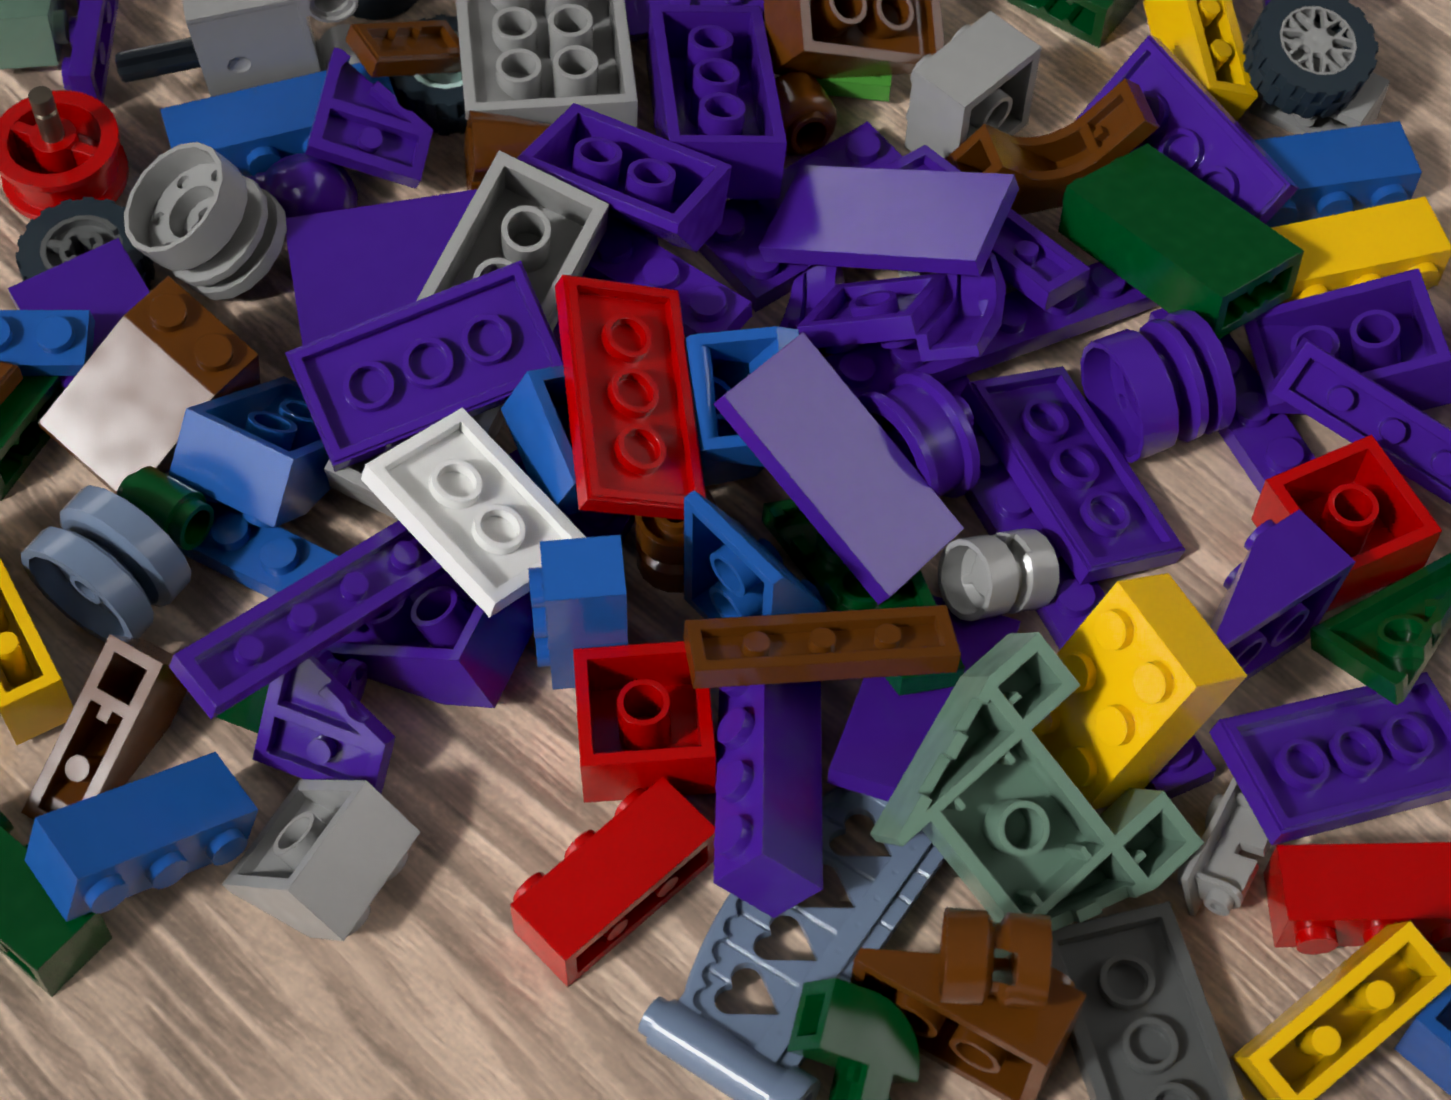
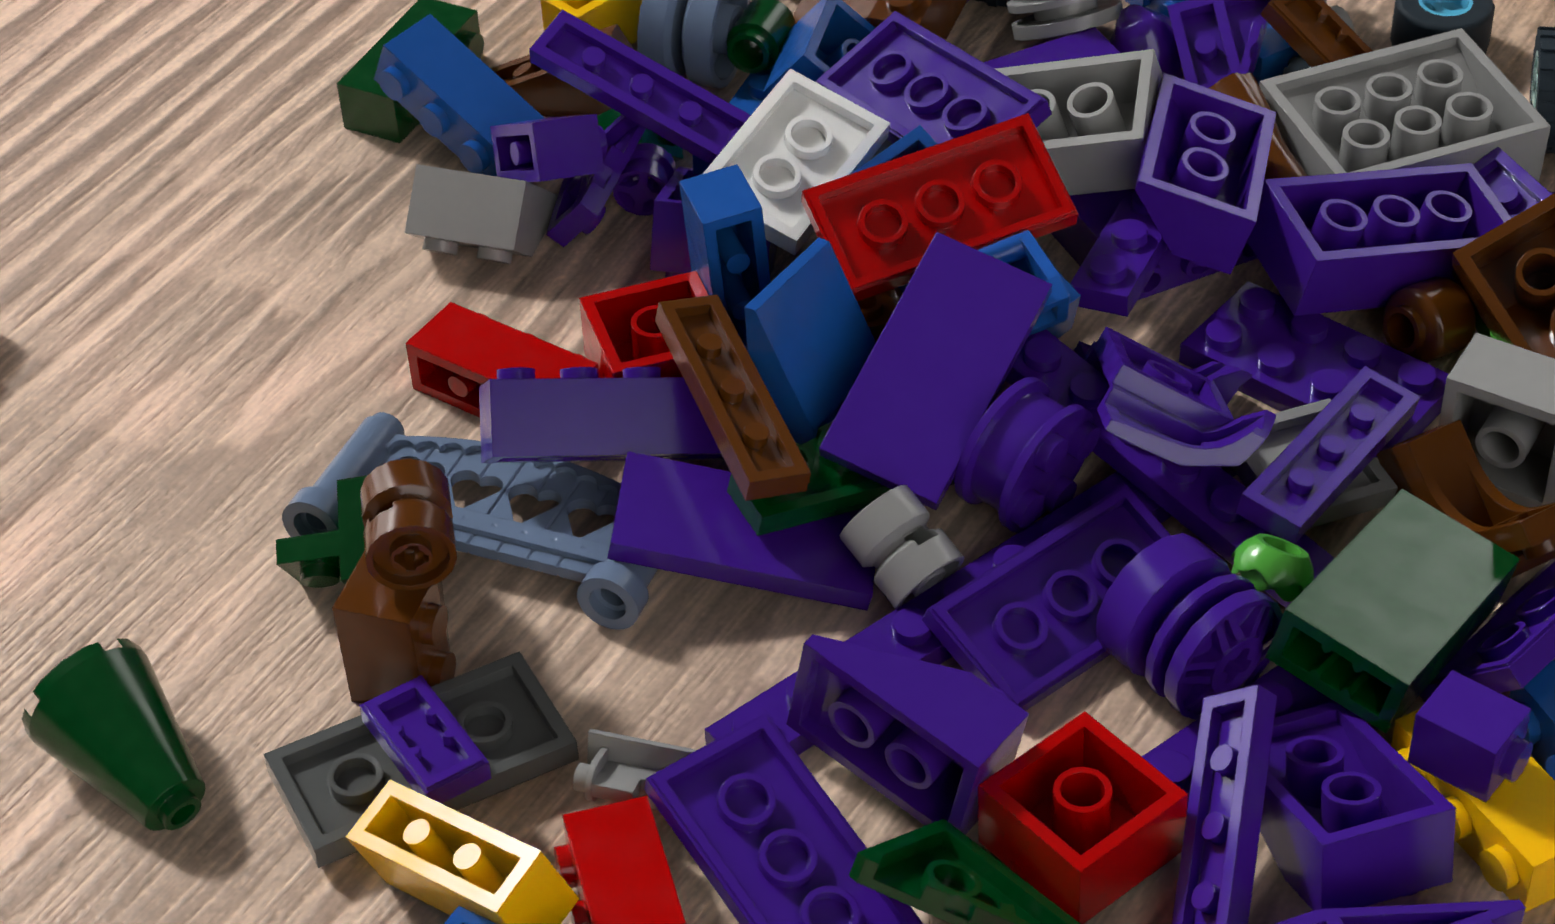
camera: 80 degrees right, 15 degrees down
(304, 752) = (549, 148): none -> dark purple brick
(890, 219) = (1283, 371): dark purple tile -> none
(1012, 813) = (599, 569): sand green wedge -> none
(1113, 305) = (1274, 565): none -> bright green plate
(1146, 687) = (760, 618): yellow brick -> none
(1171, 1028) = (425, 741): none -> dark purple plate
(1347, 235) = (1471, 736): none -> dark purple brick

